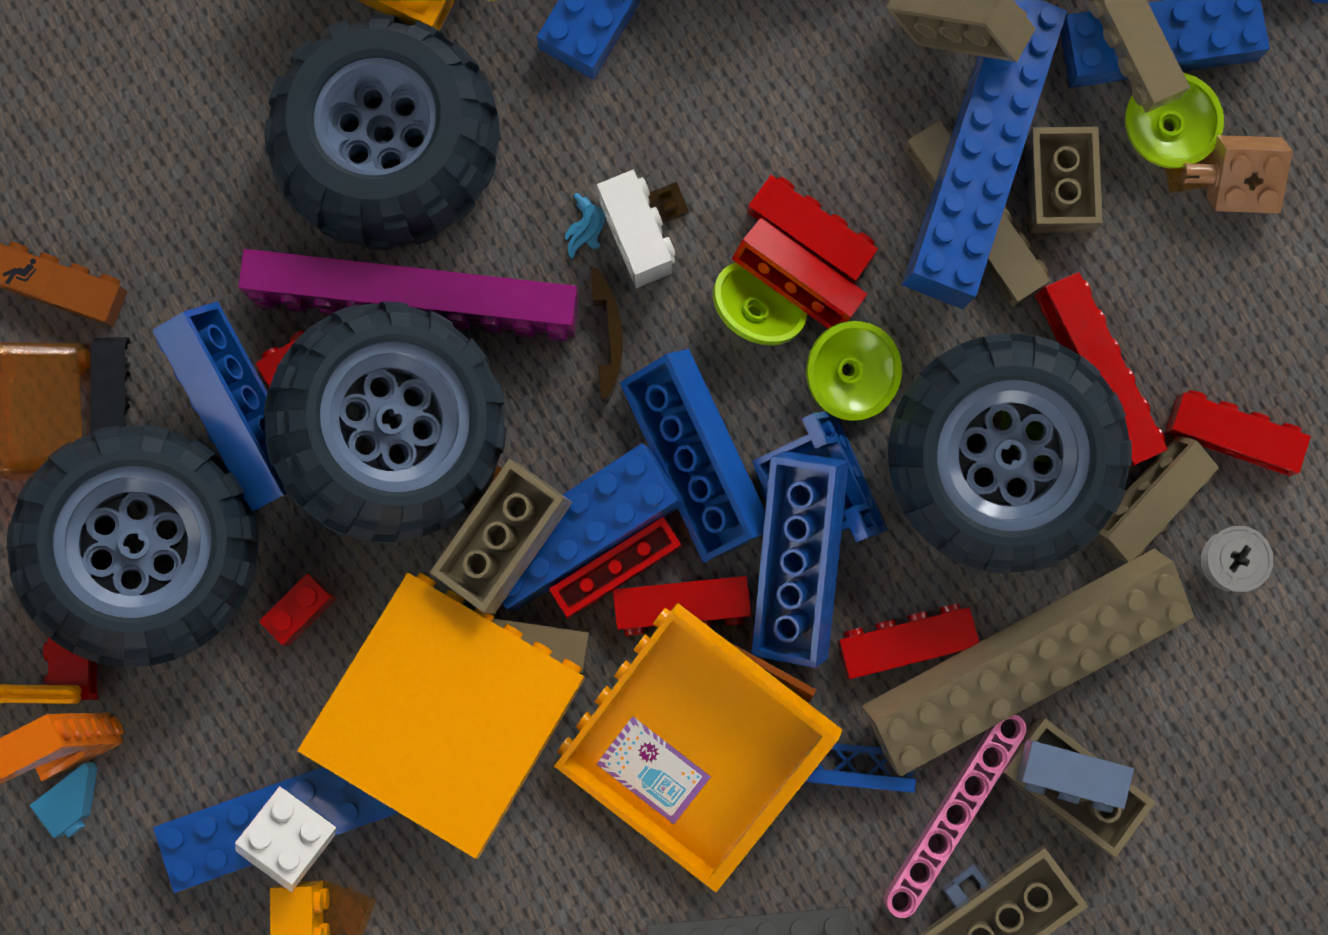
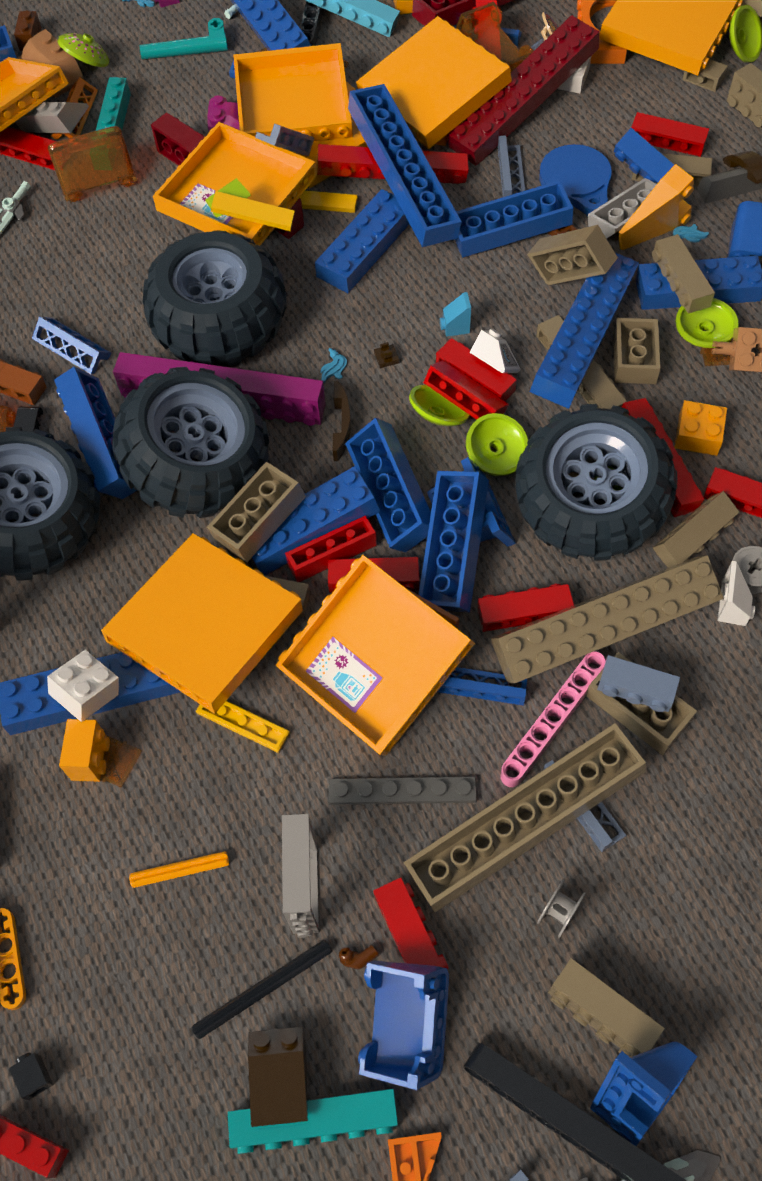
camera: 10 degrees right, 20 degrees down
(152, 202) = (75, 339): none -> fence
(297, 610) = (119, 562): red brick -> none
(534, 855) = (247, 725): none -> yellow tile
(636, 228) = (364, 361): white brick -> none
(776, 130) = (457, 316): none -> dark azure slope
(843, 205) = (495, 351): none -> white slope
(1162, 317) = (700, 428): none -> light orange brick
(1212, 610) = (737, 601): none -> white slope

